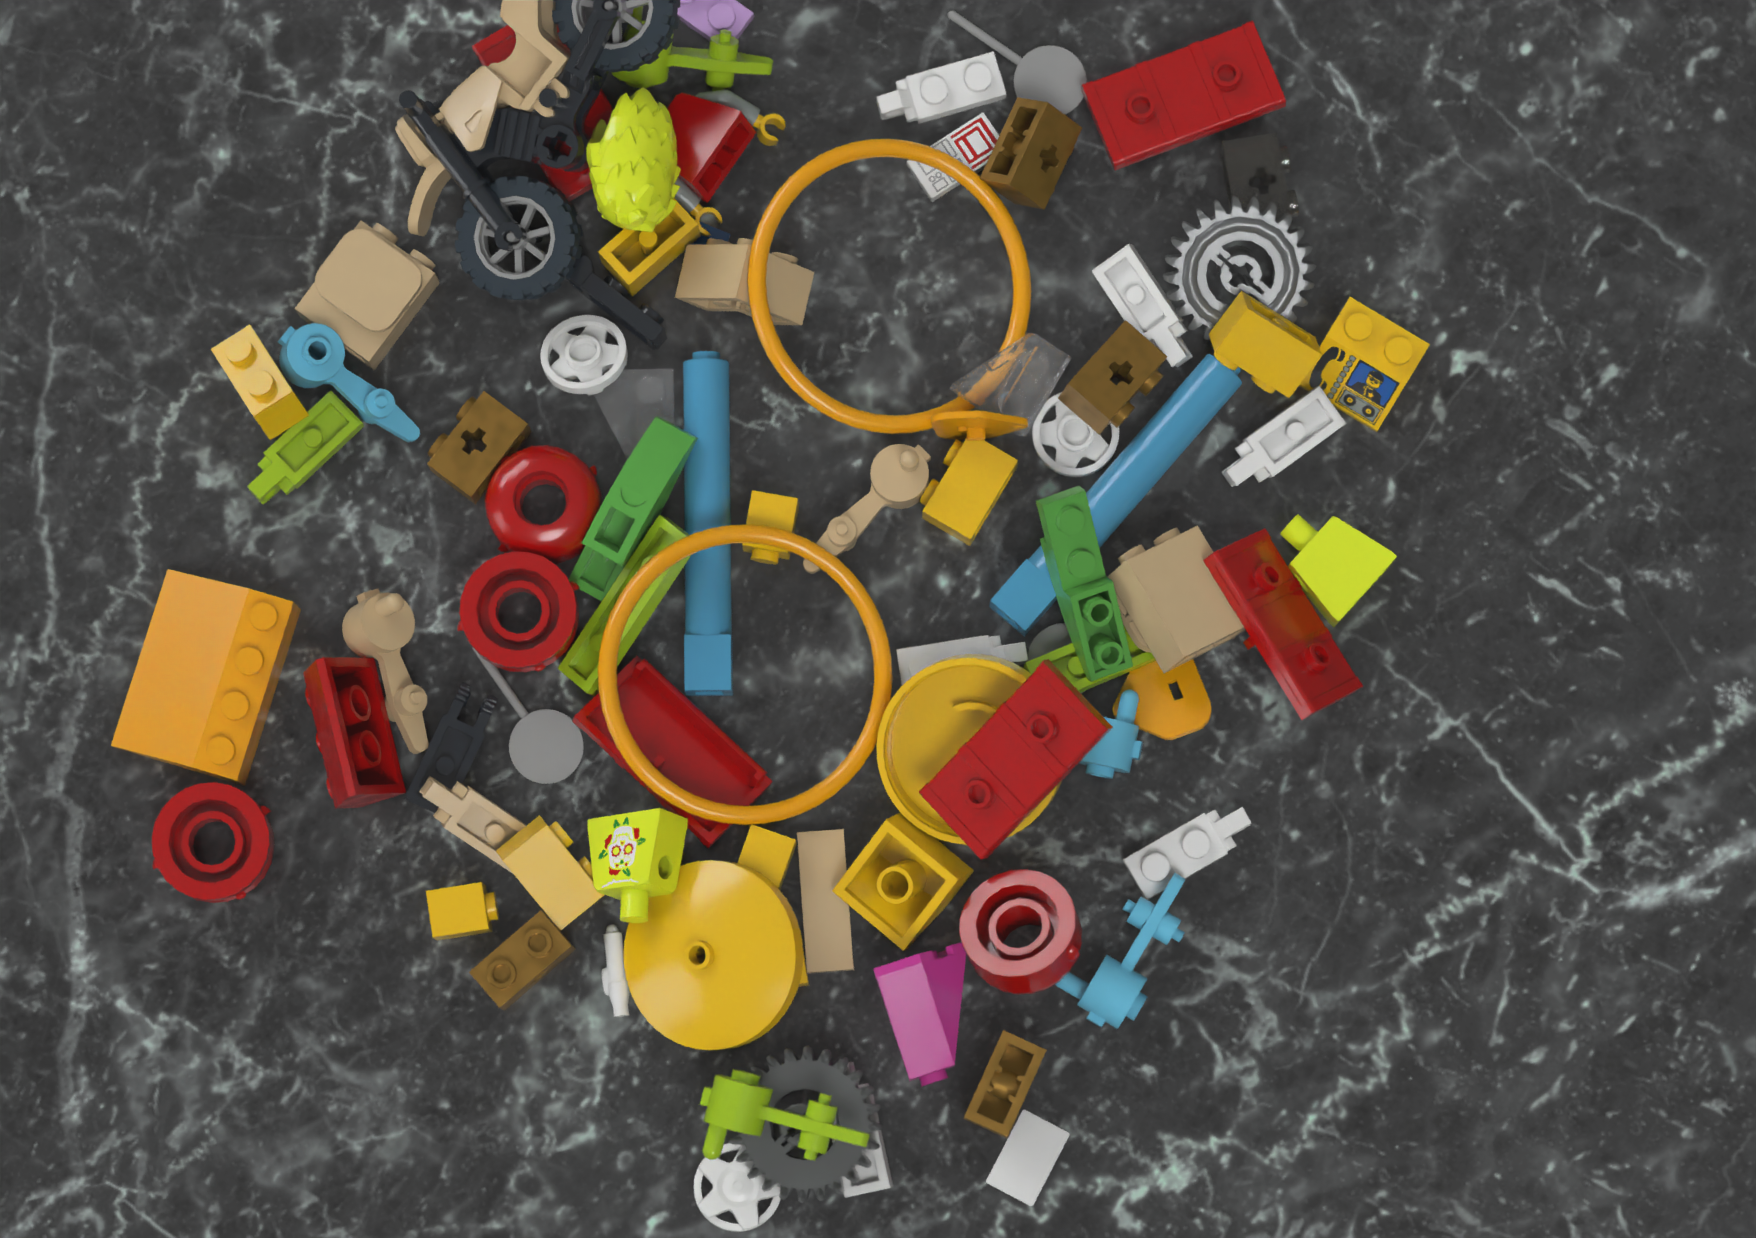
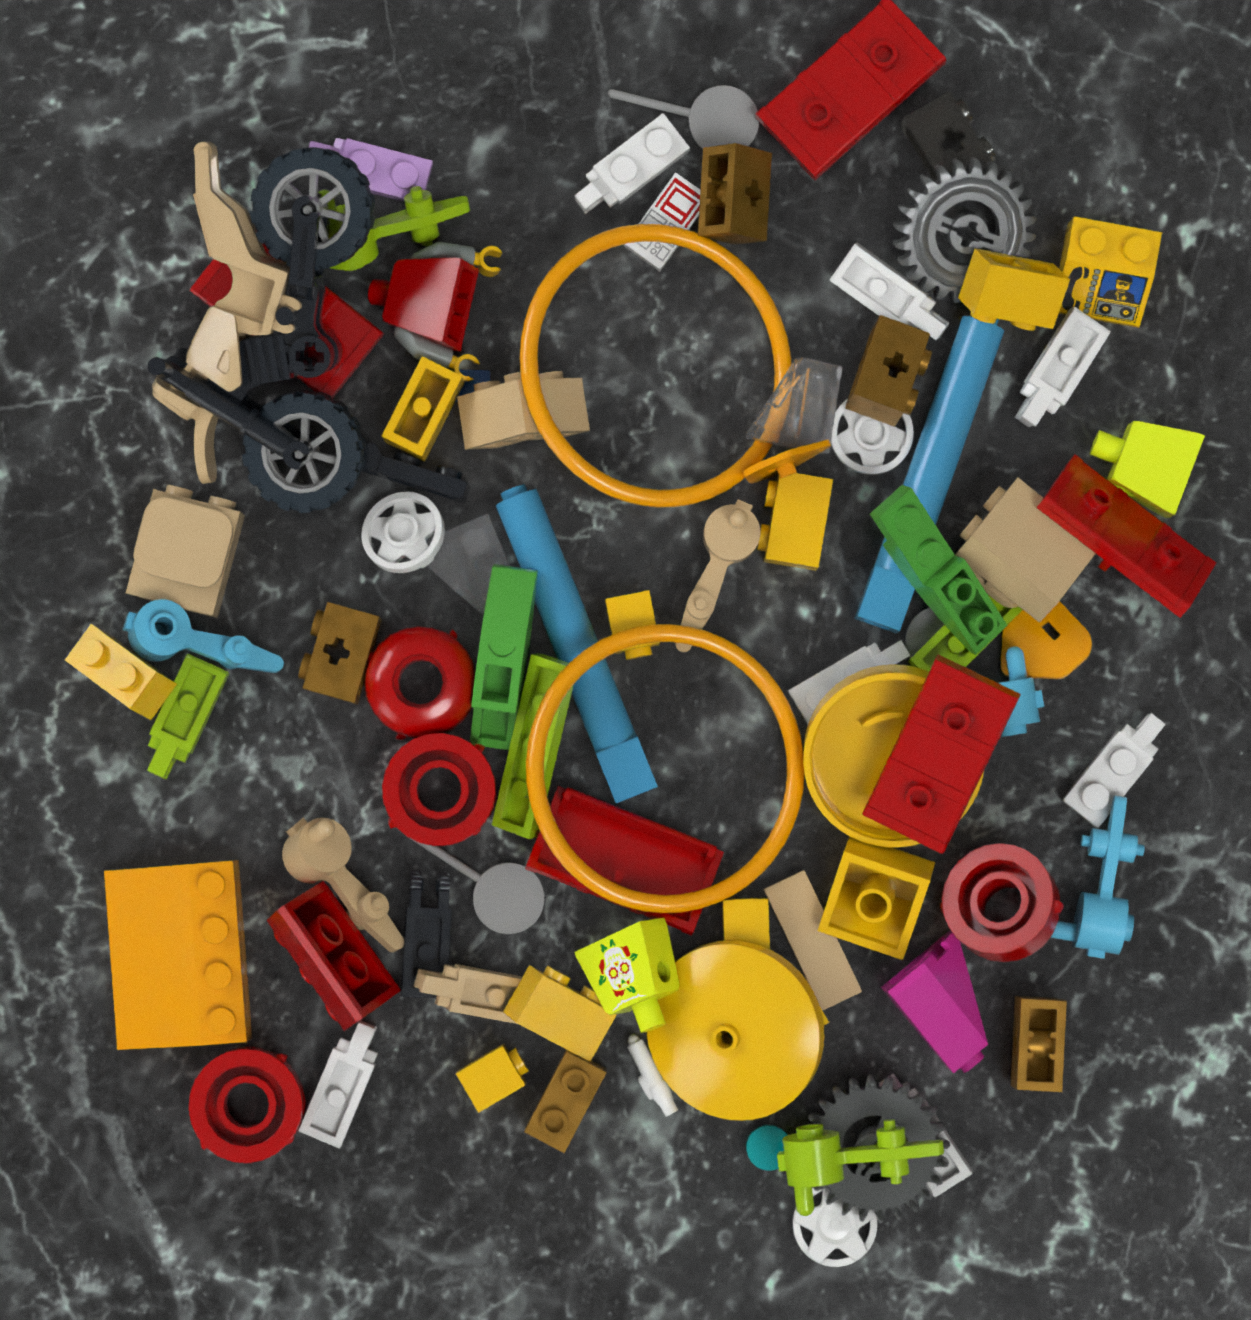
camera: 30 degrees left, 5 degrees up
(311, 864) = (341, 1087): none -> white hinge
(634, 163) = (384, 344): neon yellow head -> none
(693, 1083) = (764, 1146): none -> teal tile
(1027, 1157) = (1081, 1103): white sticker -> none

